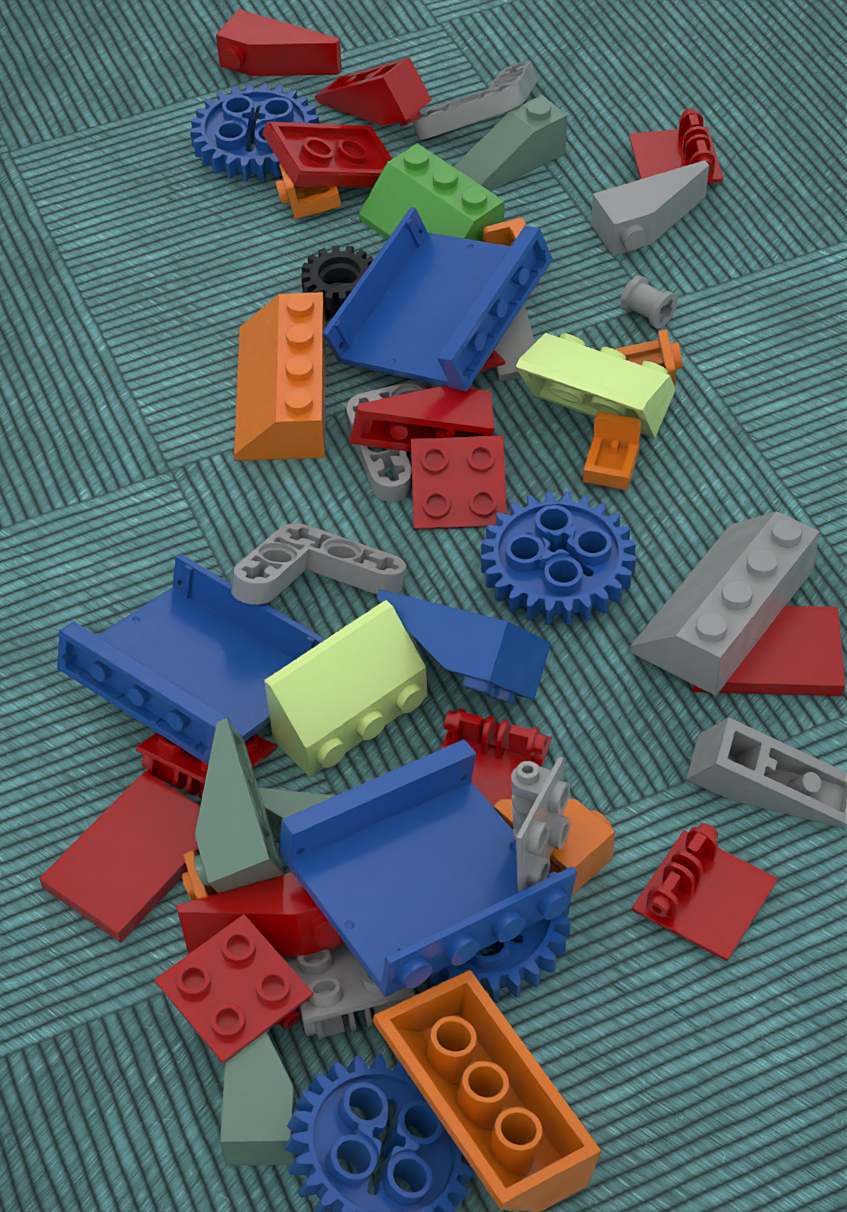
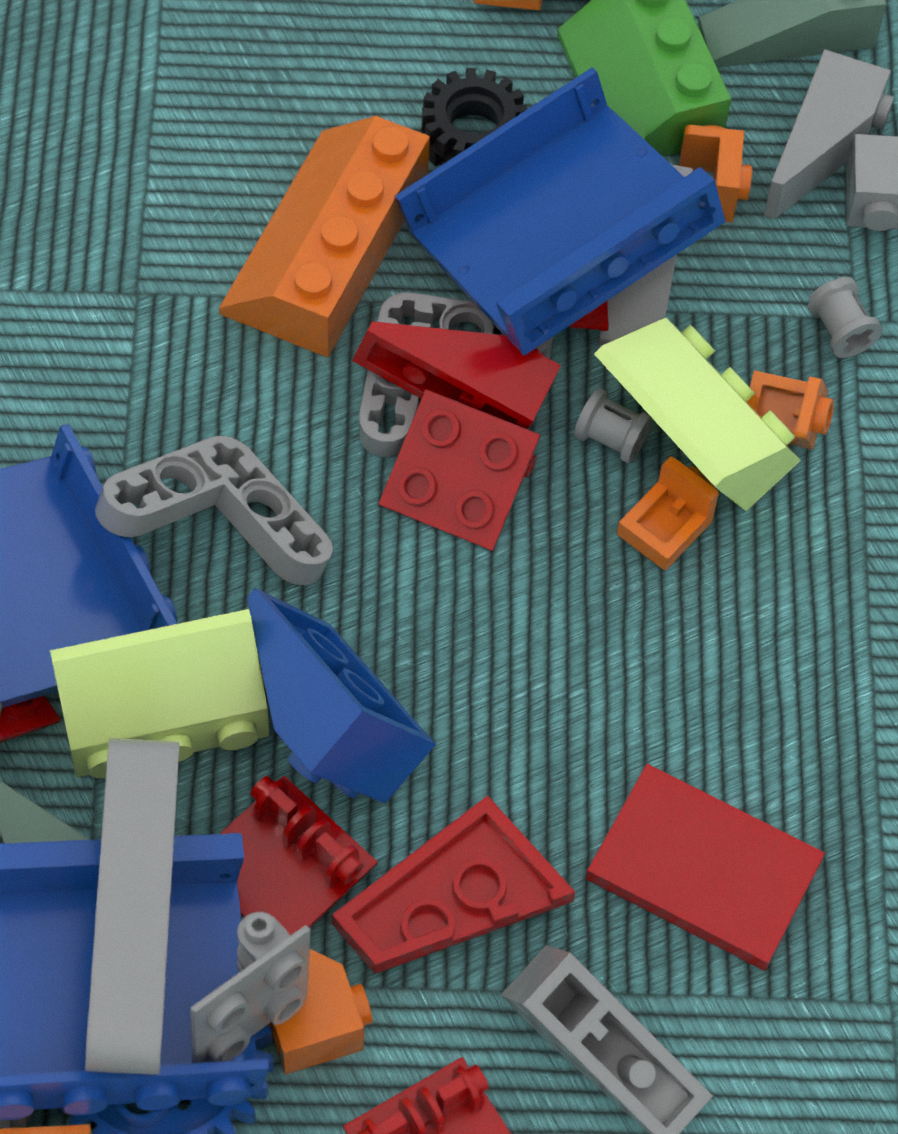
camera: 20 degrees right, 10 degrees up
(394, 748) = (132, 908): none -> light grey beam
(542, 418) = (613, 425): none -> light grey bush
(558, 558) = (571, 608): blue gear -> none
(568, 198) = (840, 102): none -> light grey slope
(616, 729) = (450, 890): none -> red wing
(729, 600) = (689, 785): light grey slope -> none

